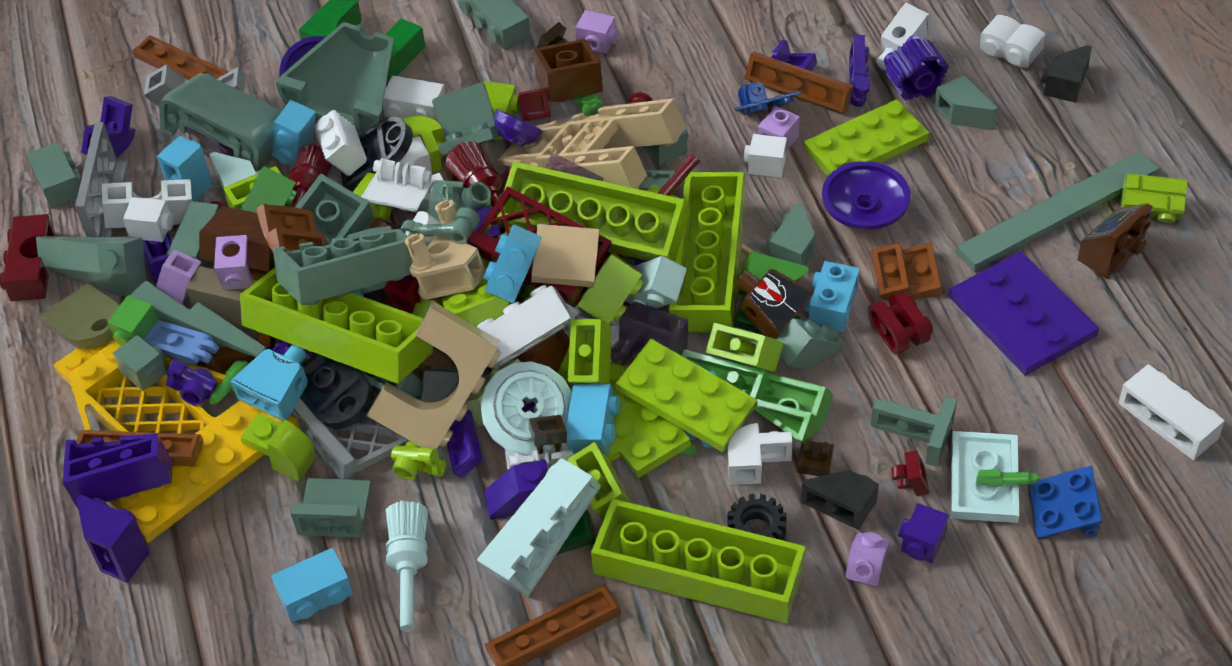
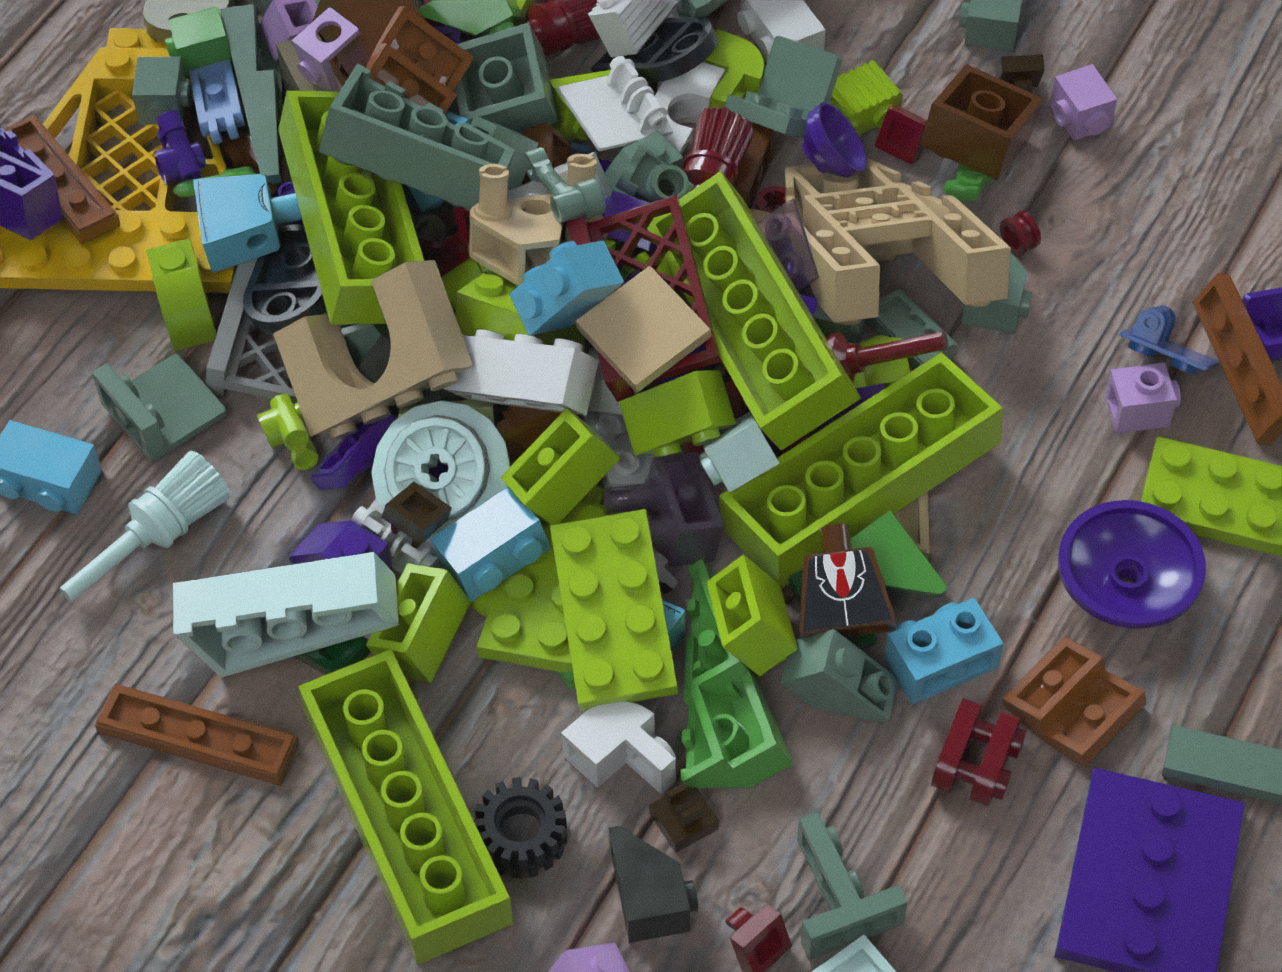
camera: 45 degrees right, 5 degrees up
(766, 155) = (1087, 415): white brick -> none
(794, 238) = (985, 542): sand green slope -> none

